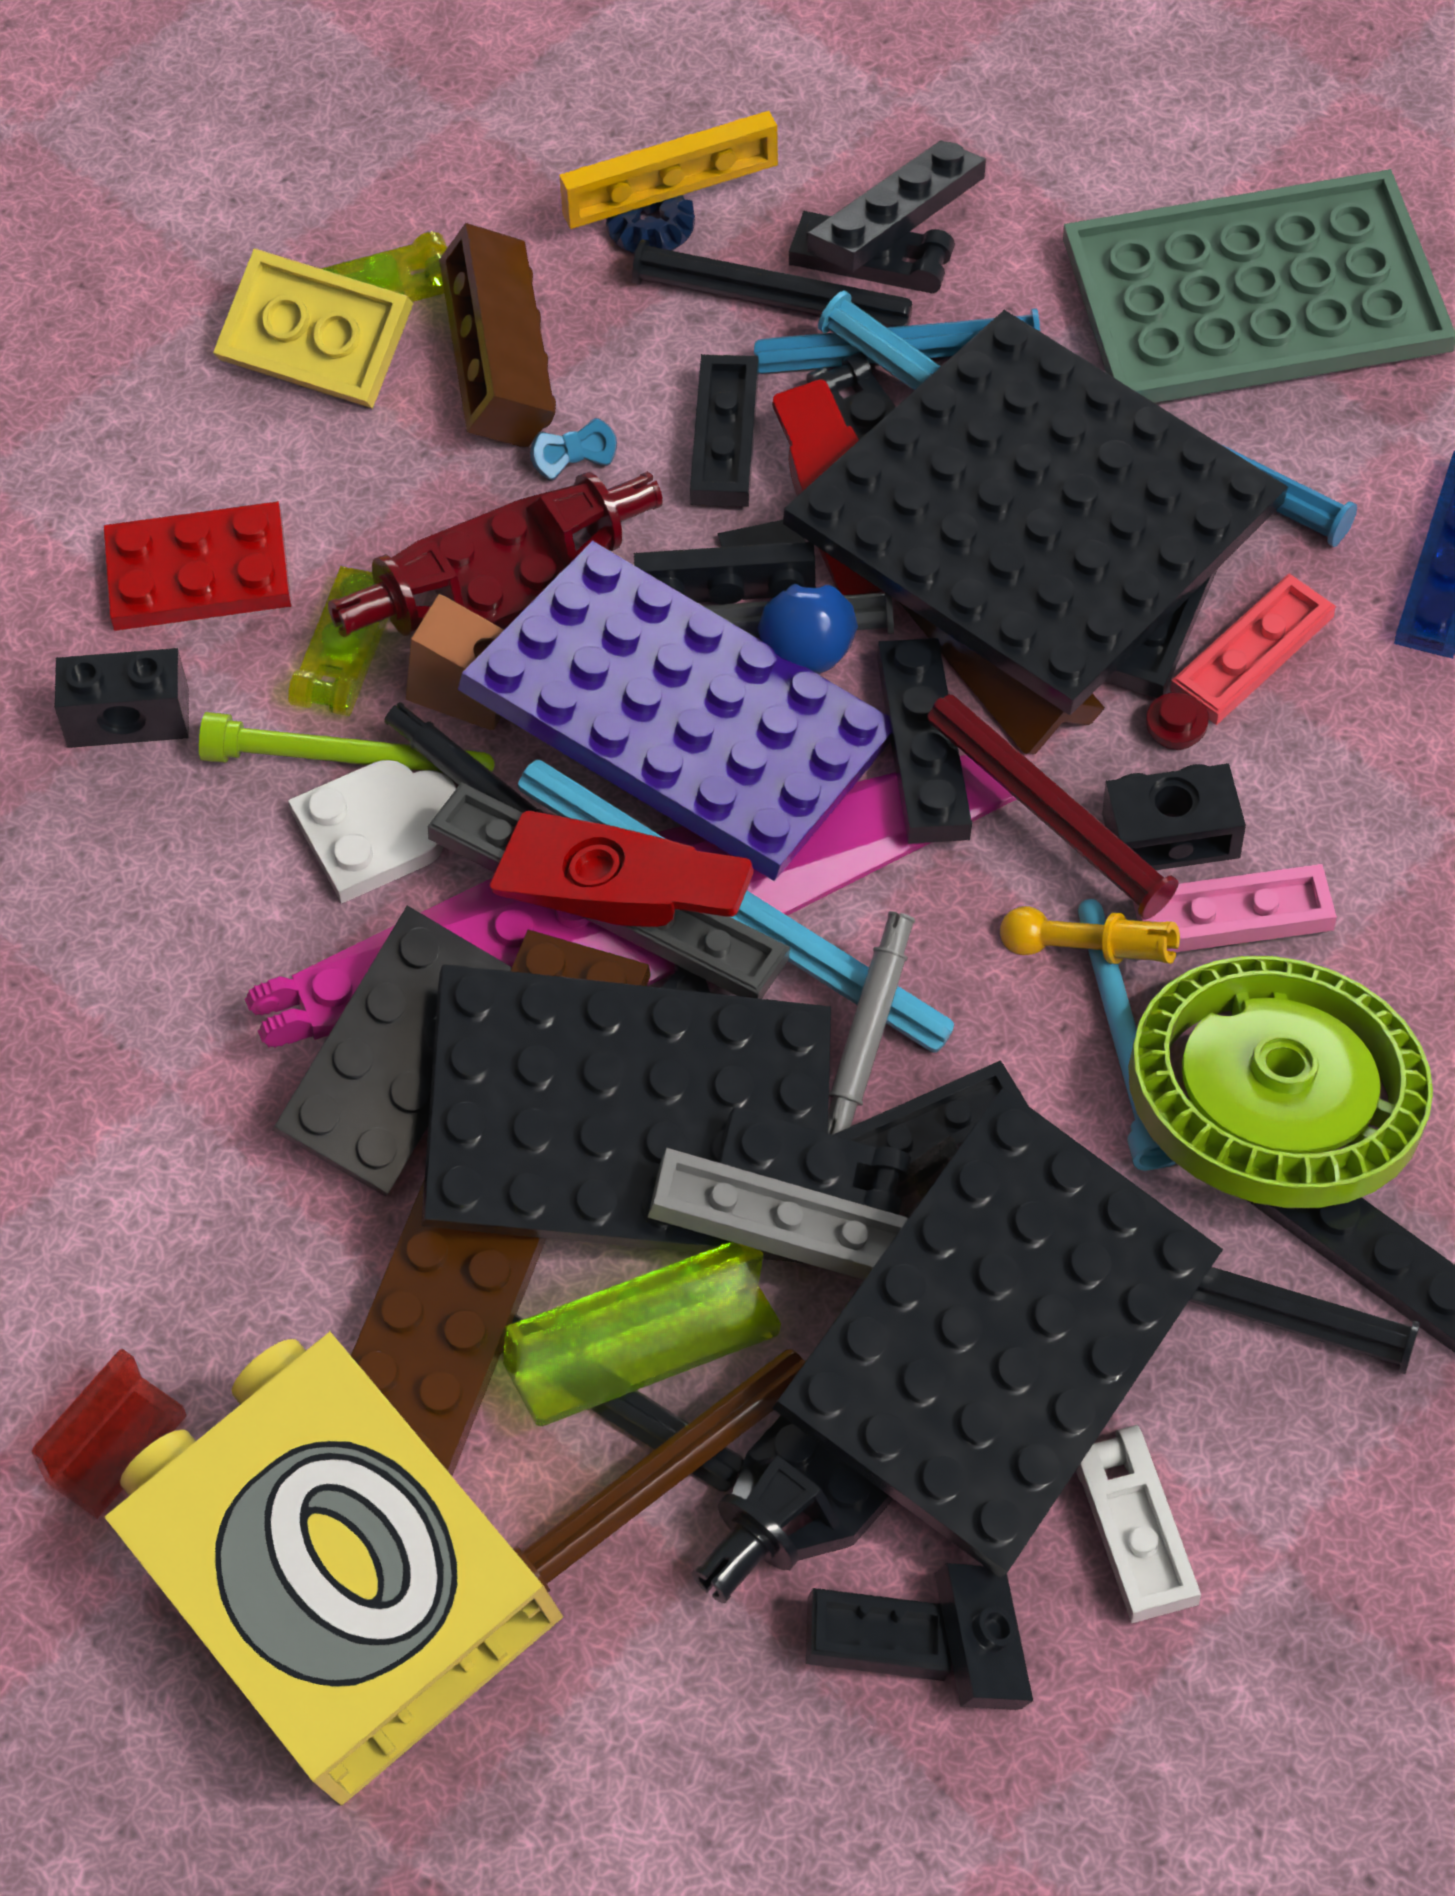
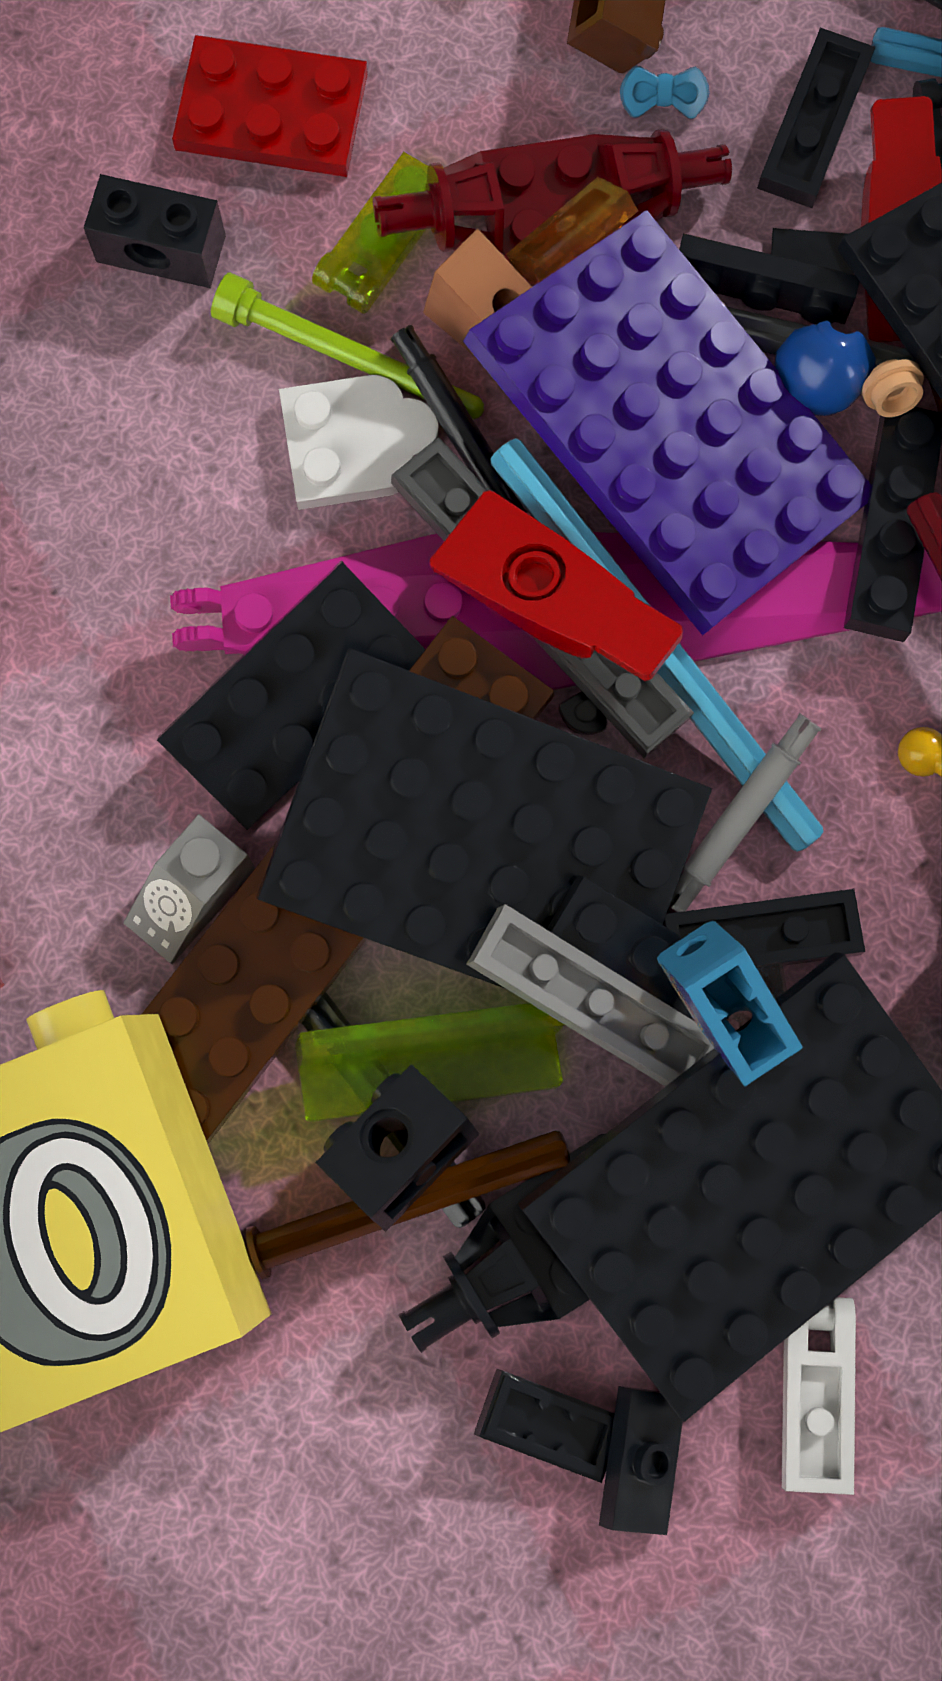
camera: 15 degrees right, 20 degrees up
(346, 1258) = (187, 888): none -> light grey slope
(531, 571) = (572, 230): none -> clear orange plate
(637, 1440) = (392, 1184): none -> black brick
(878, 623) = (893, 387): none -> light nougat plate
(900, 1138) = (718, 980): none -> dark azure torso

